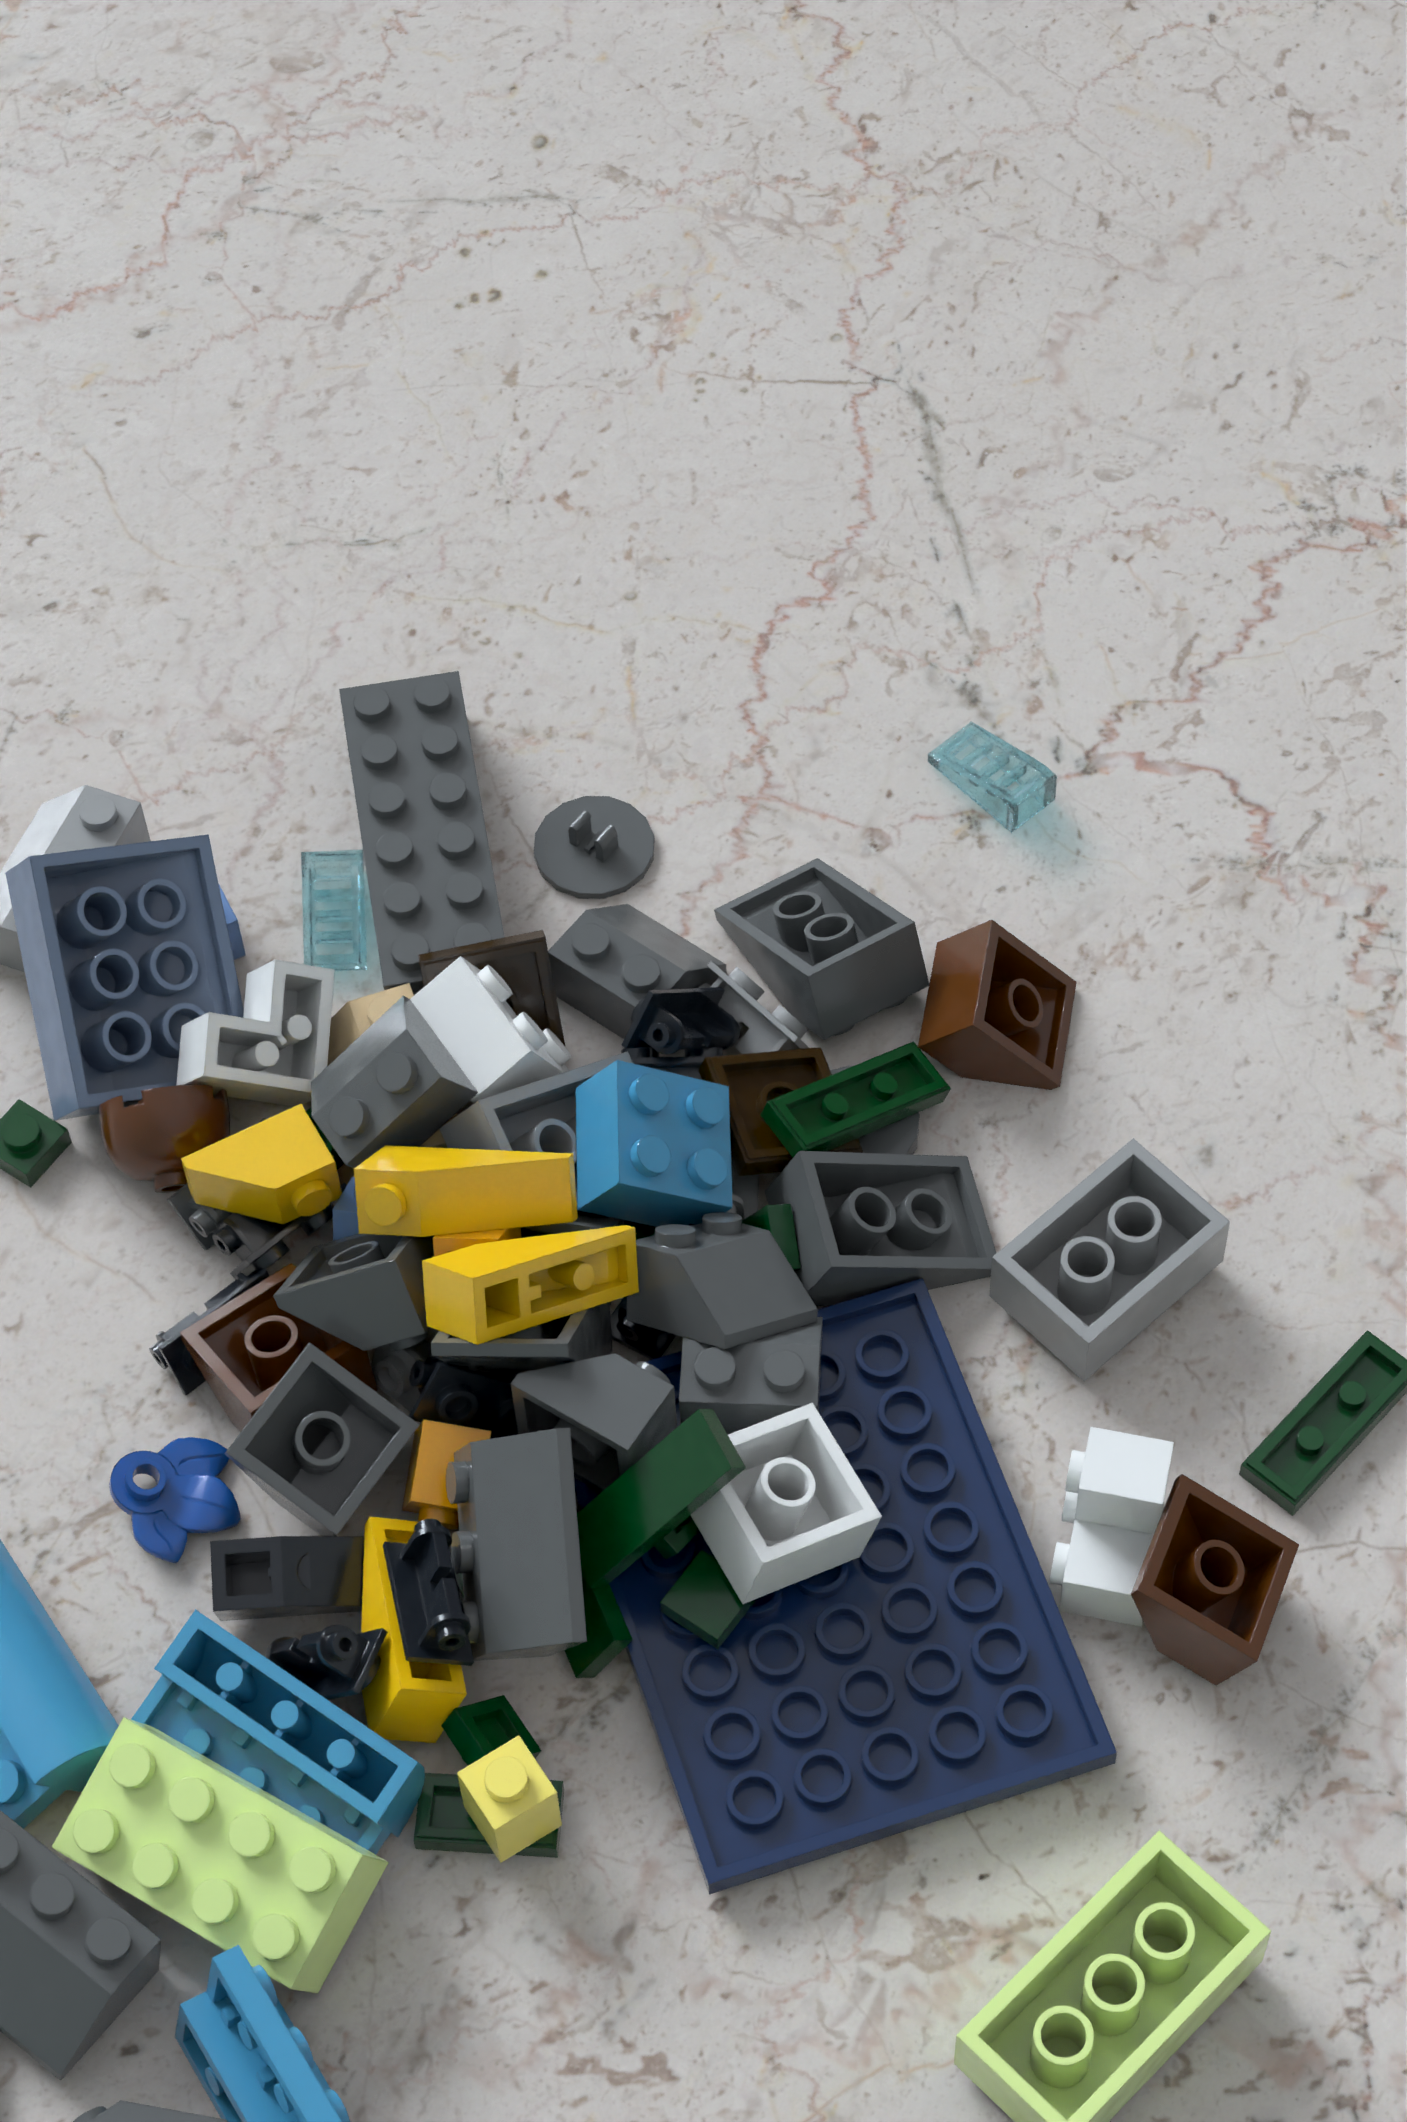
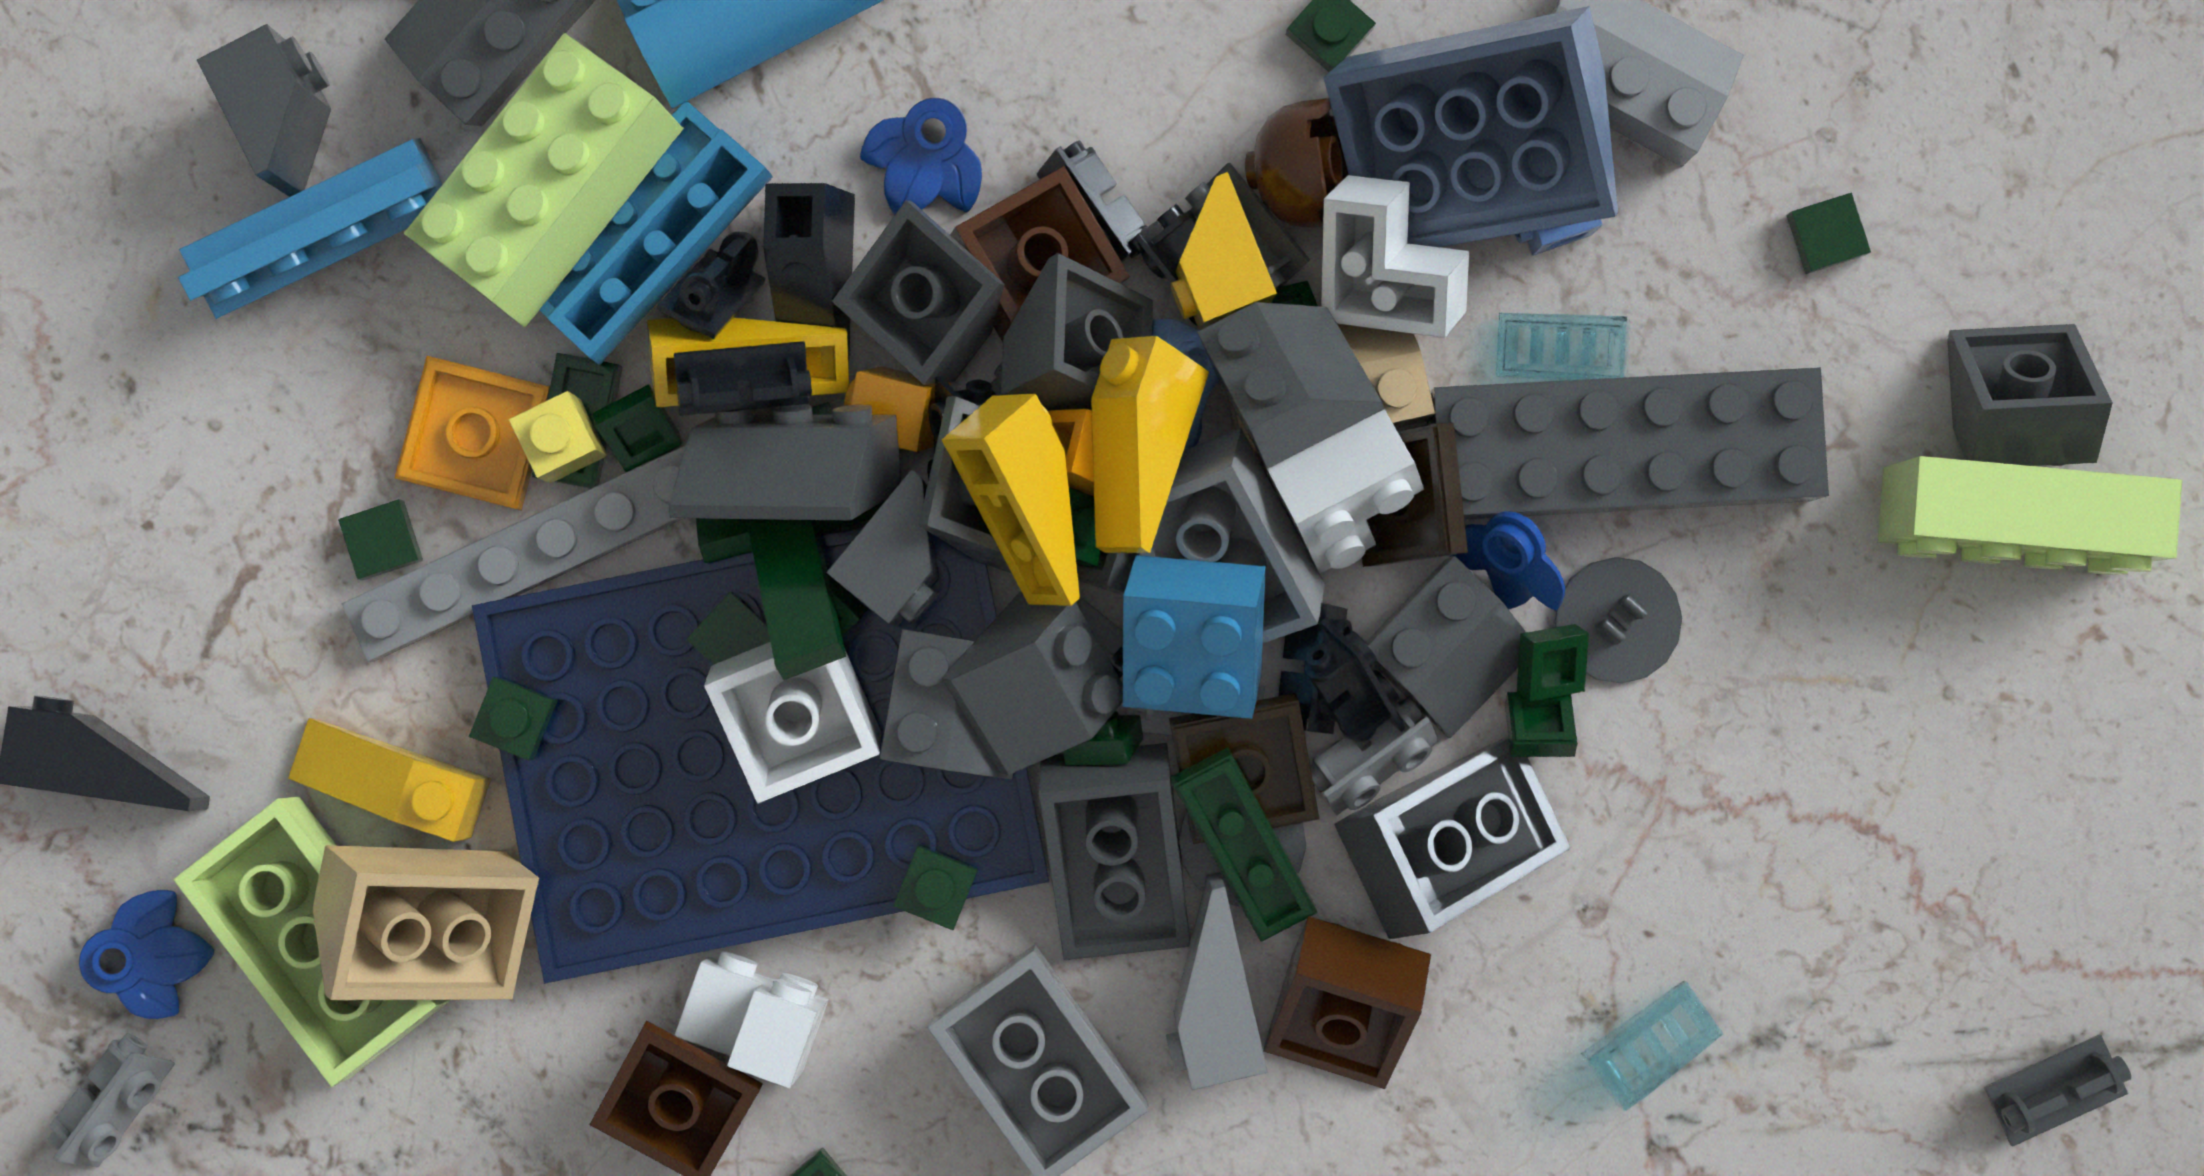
camera: 90 degrees right, 30 degrees up
(210, 721) = (1828, 233): none -> dark green tile
(352, 555) = (2026, 396): none -> dark grey slope
(461, 534) = (2029, 511): none -> yellowish green brick
(512, 1926) = (463, 433): none -> light orange tile
(549, 898) = (1514, 559): none -> blue plate
(641, 881) = (1552, 662): none -> dark green plate
(646, 1850) = (515, 558): none -> light grey plate
(646, 2010) = (380, 539): none -> dark green tile
(702, 887) = (1540, 726): none -> dark green tile
(828, 1814) = (513, 718): none -> dark green plate
(918, 1956) = (390, 781): none -> yellow slope
(945, 1373) = (935, 887): none -> dark green plate
(973, 475) = (2058, 1089): none -> dark grey hinge
(1009, 1117) = (1213, 1005): none -> light grey slope
(1066, 1855) = (421, 923): none -> tan slope

